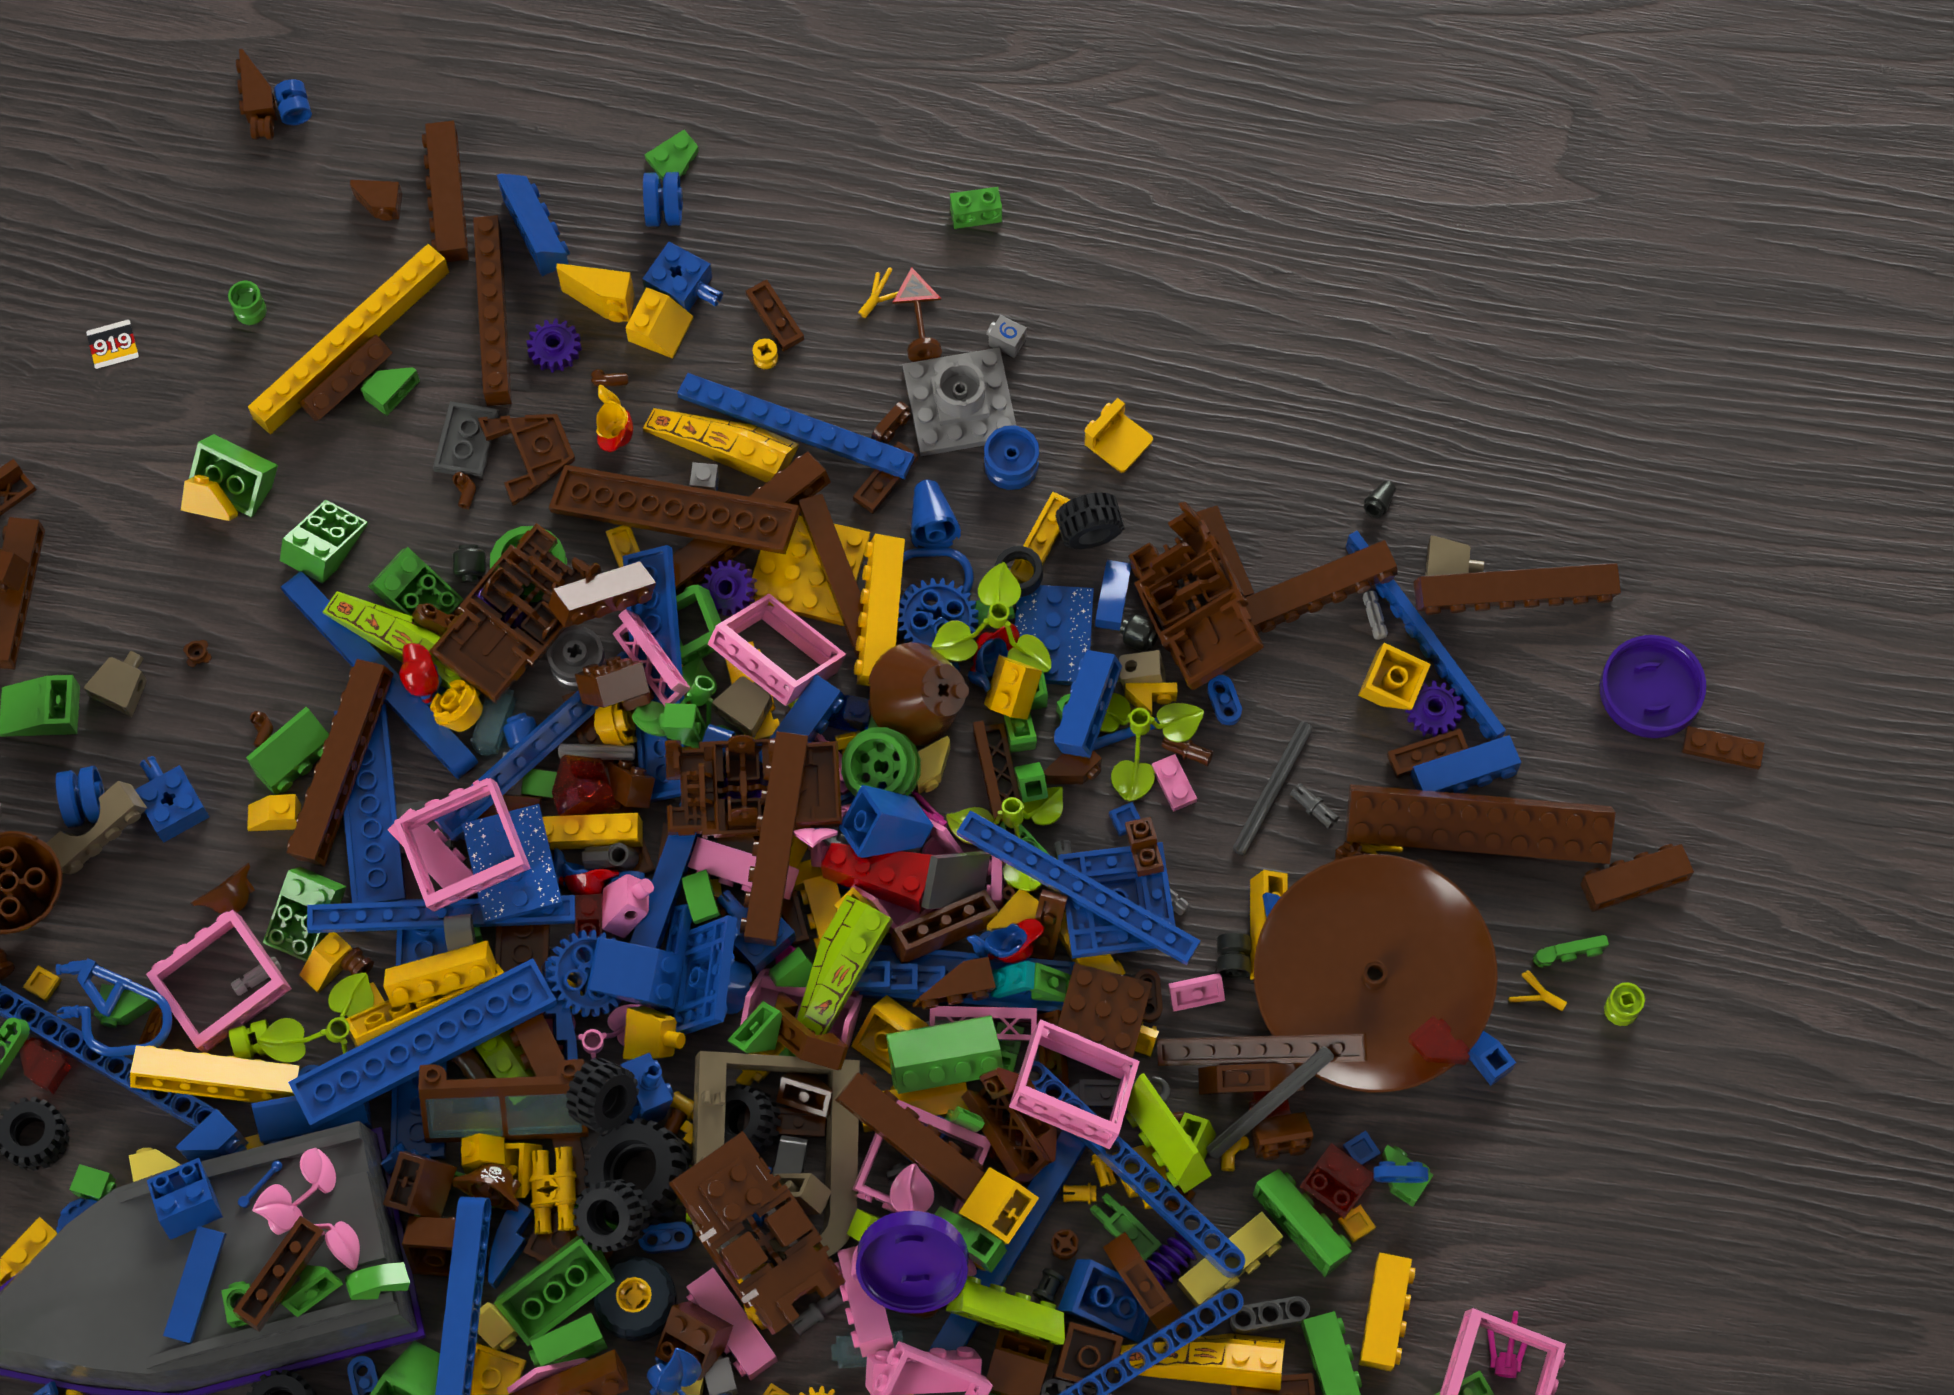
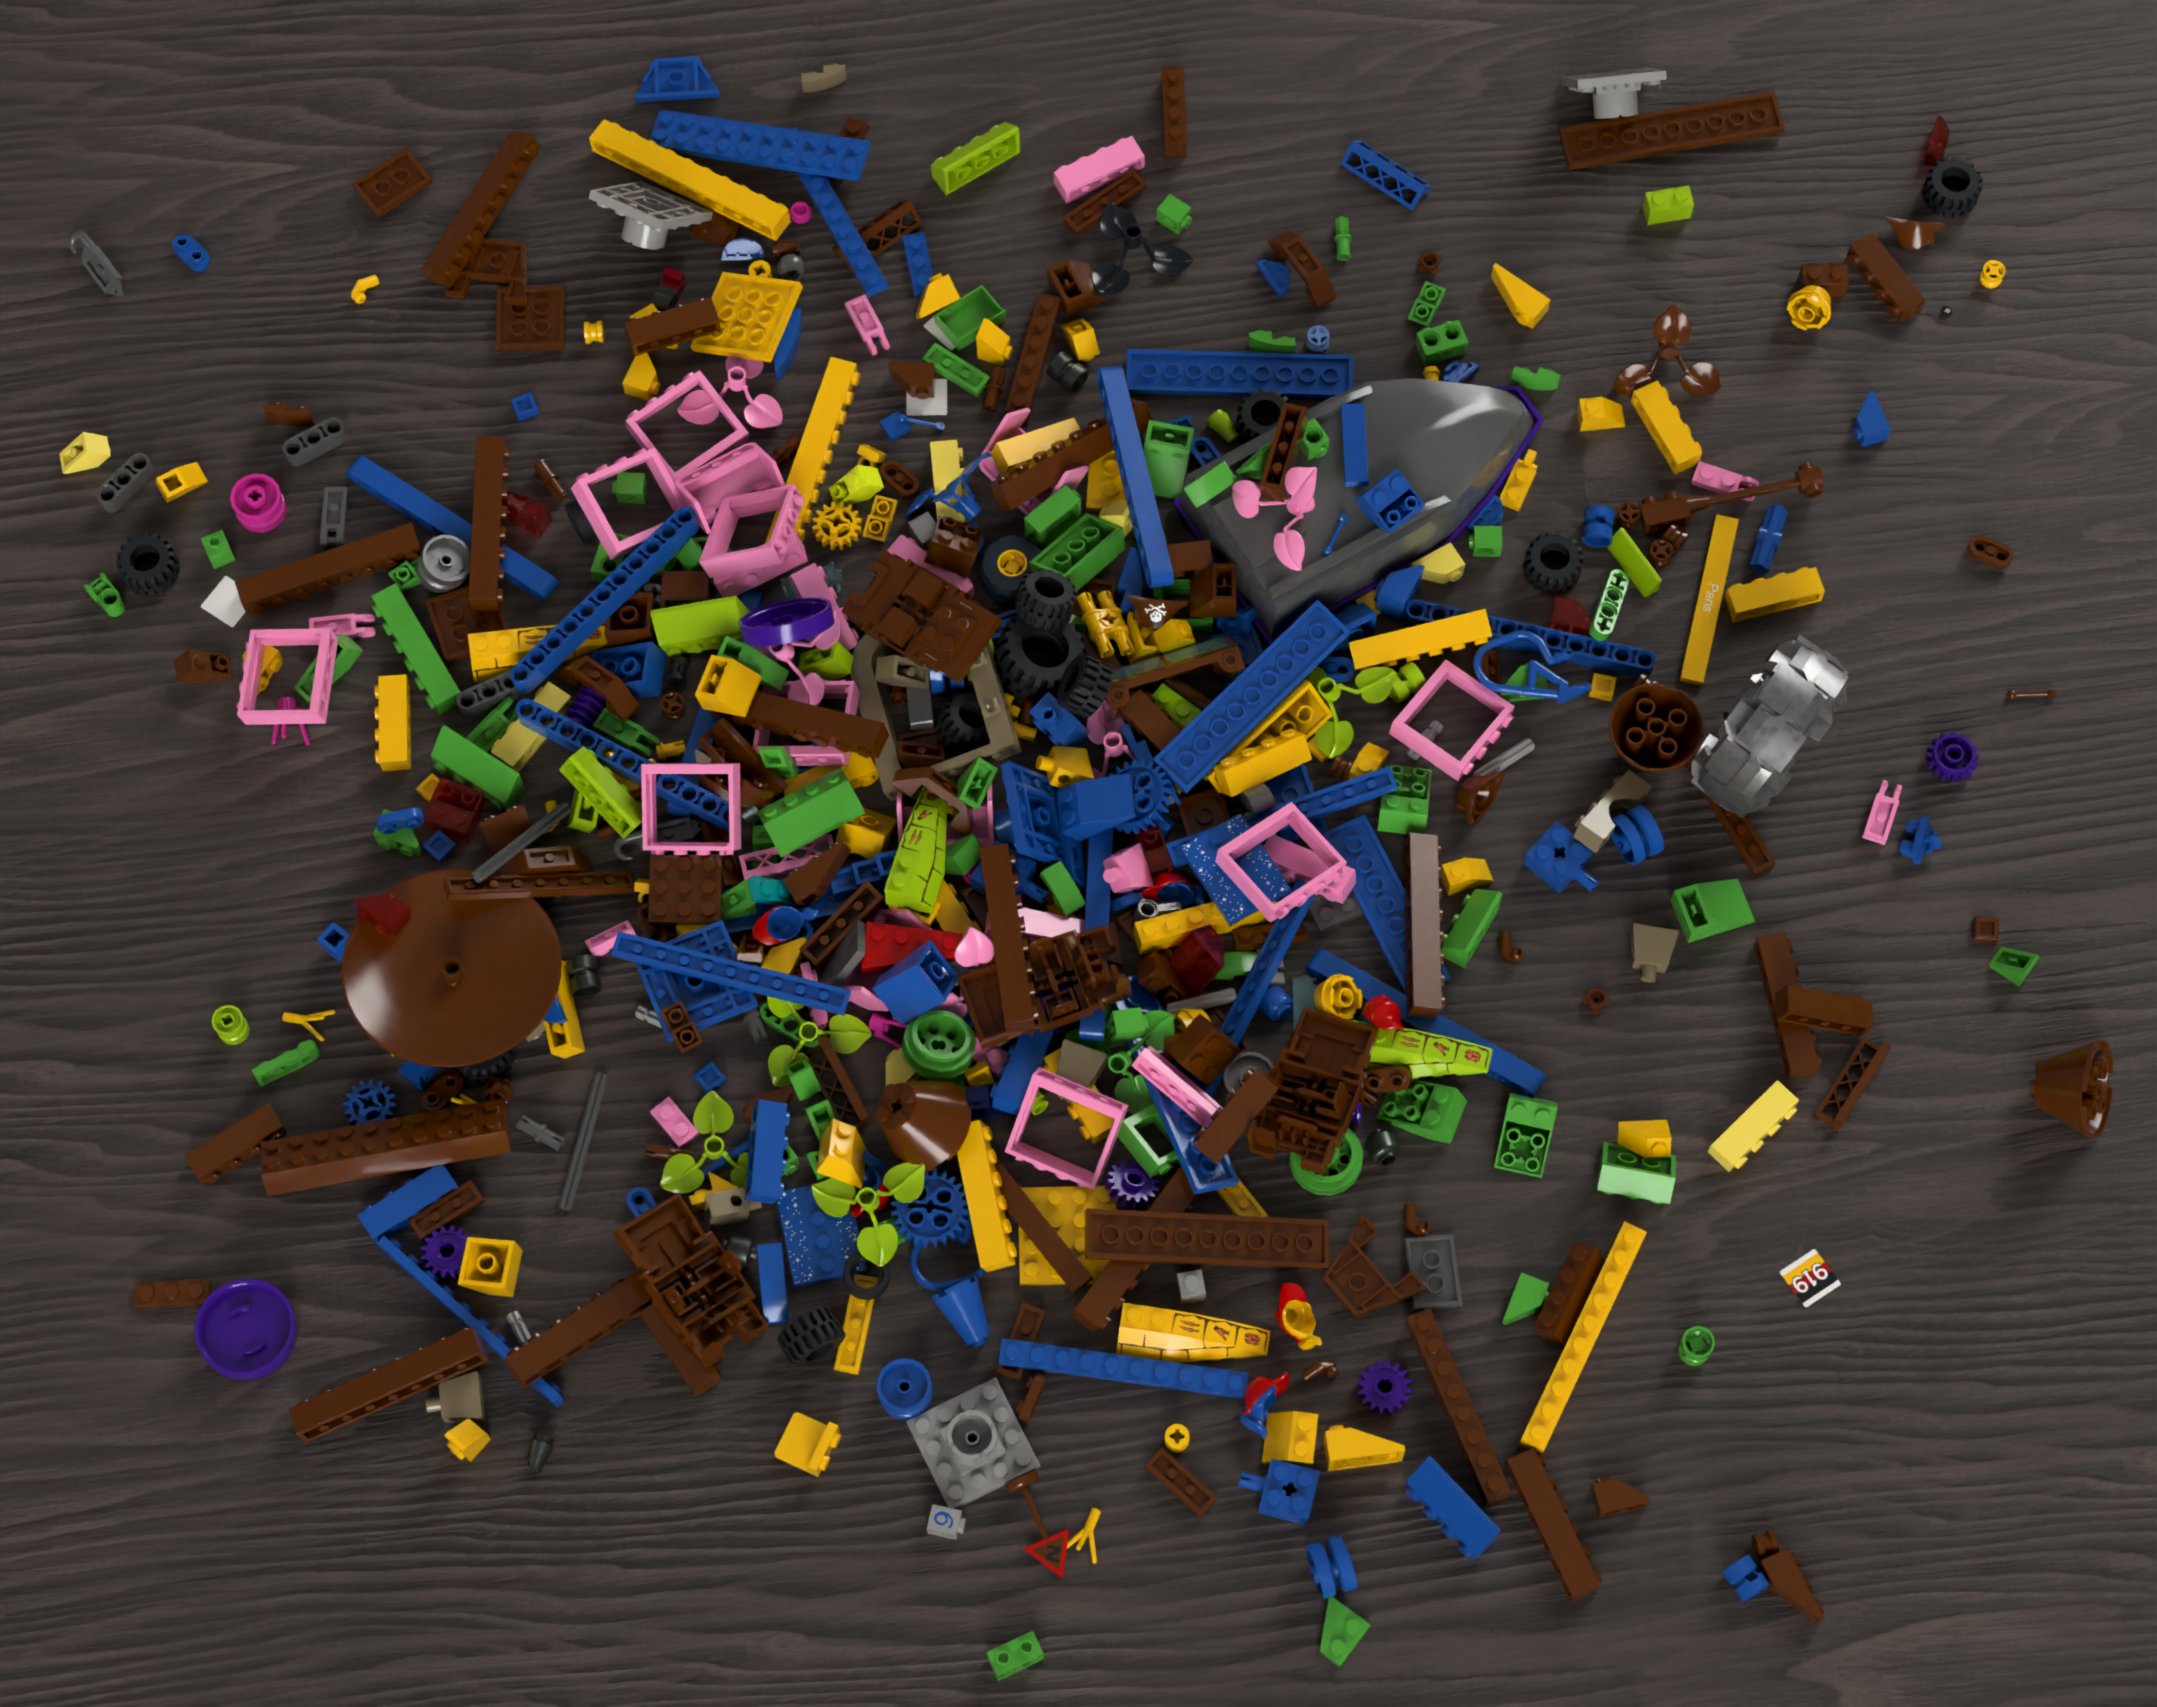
camera: 165 degrees right, 0 degrees up
(99, 487) = (1753, 1126): none -> light yellow brick
(179, 929) = (1506, 758): none -> light grey axle
(676, 363) = (1259, 1398): none -> hair
(1273, 1274) = (493, 726): none -> bright green hinge
(1450, 519) = (466, 1440): none -> yellow slope
(1494, 887) = (361, 1098): none -> blue gear

